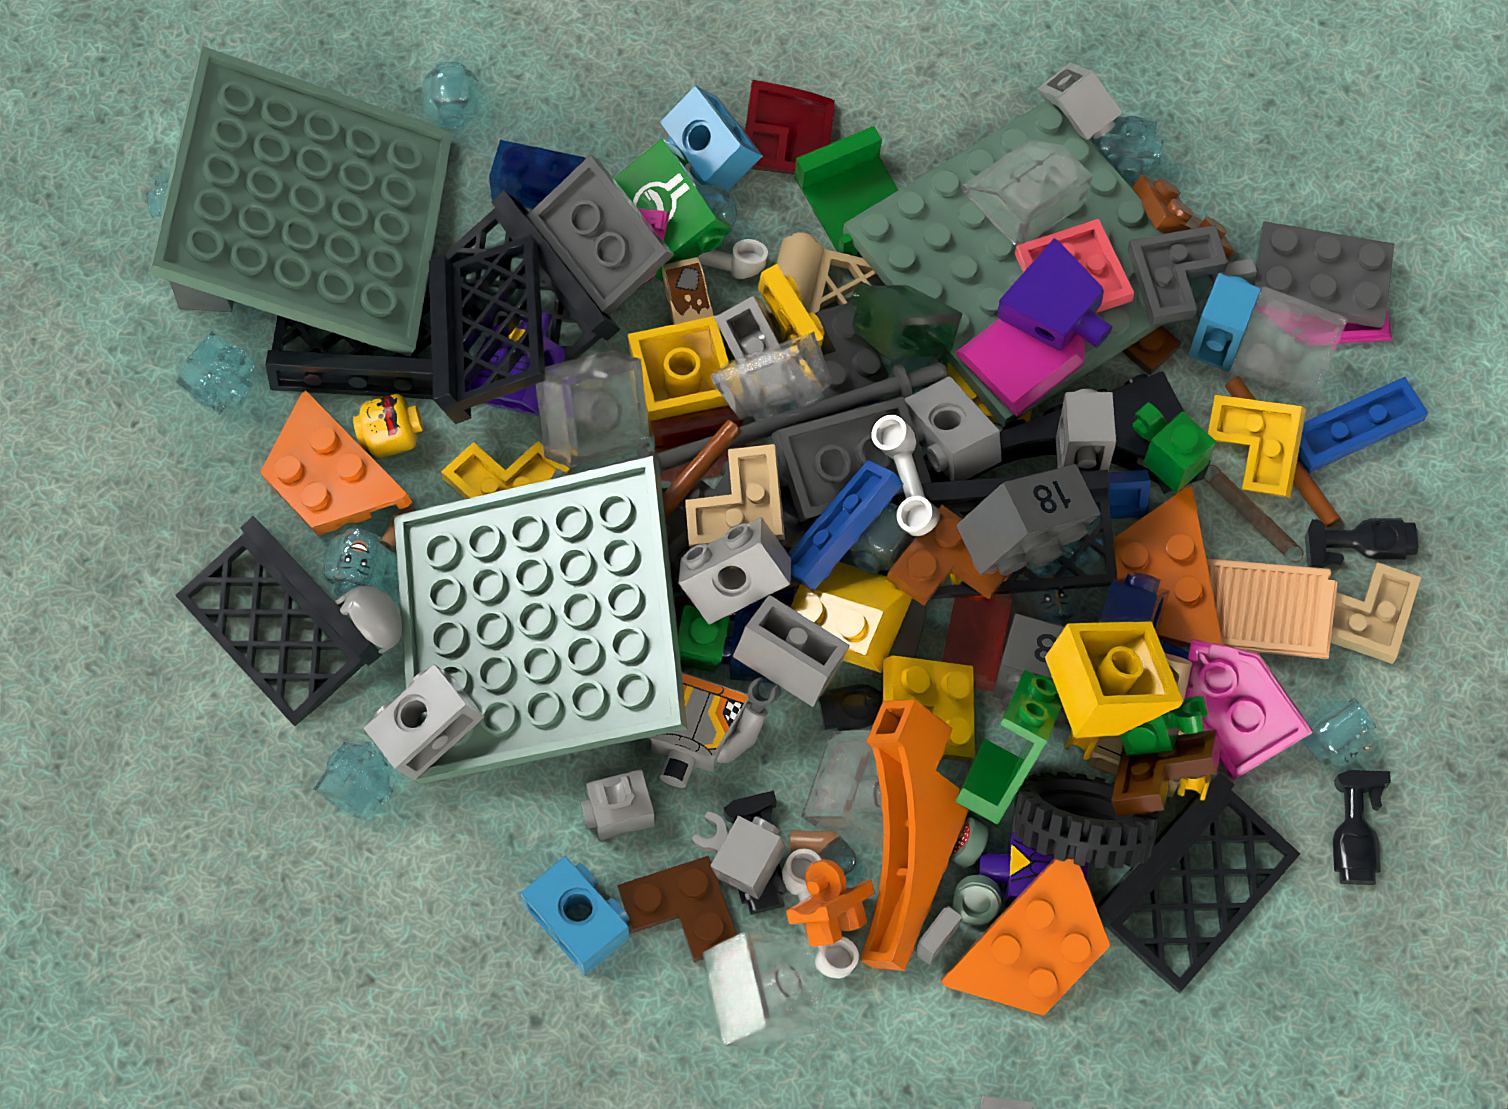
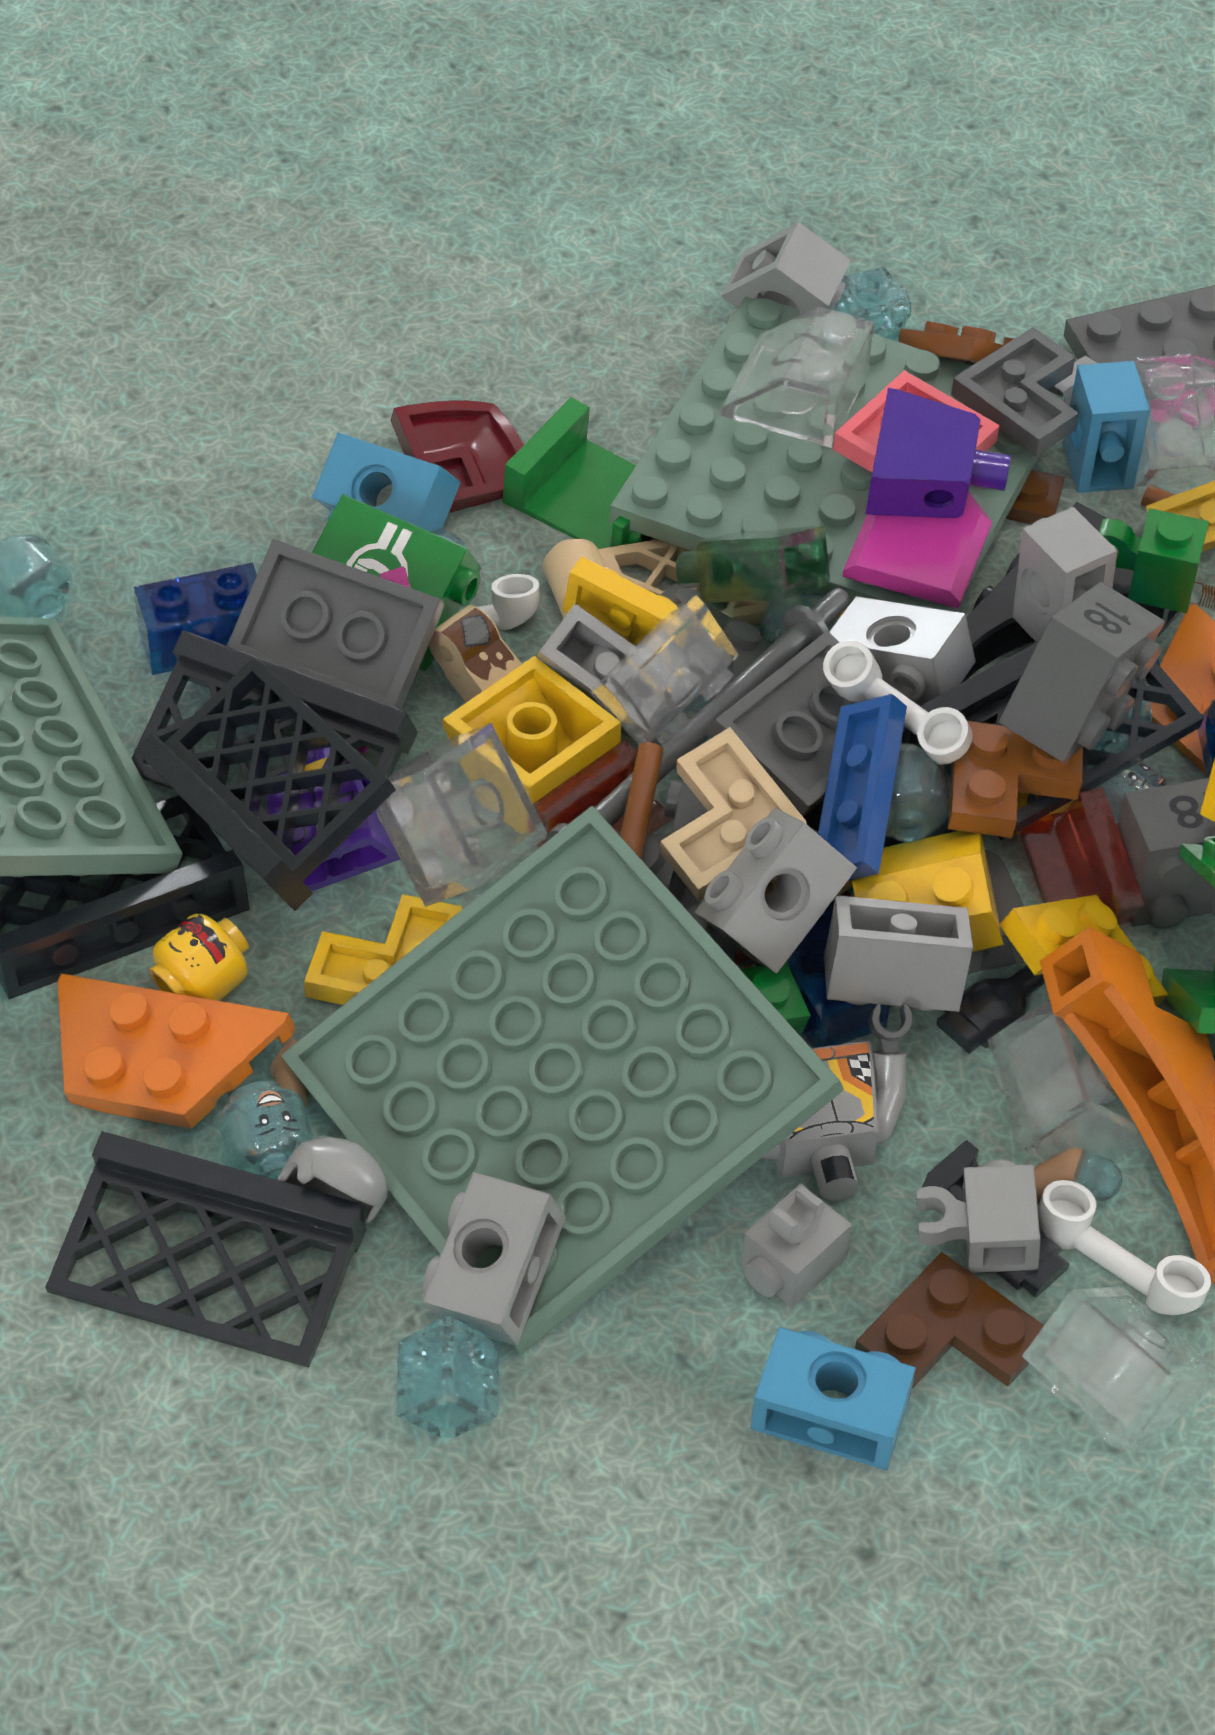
camera: 30 degrees left, 15 degrees down
(831, 904) = (1132, 1218): orange hips -> none

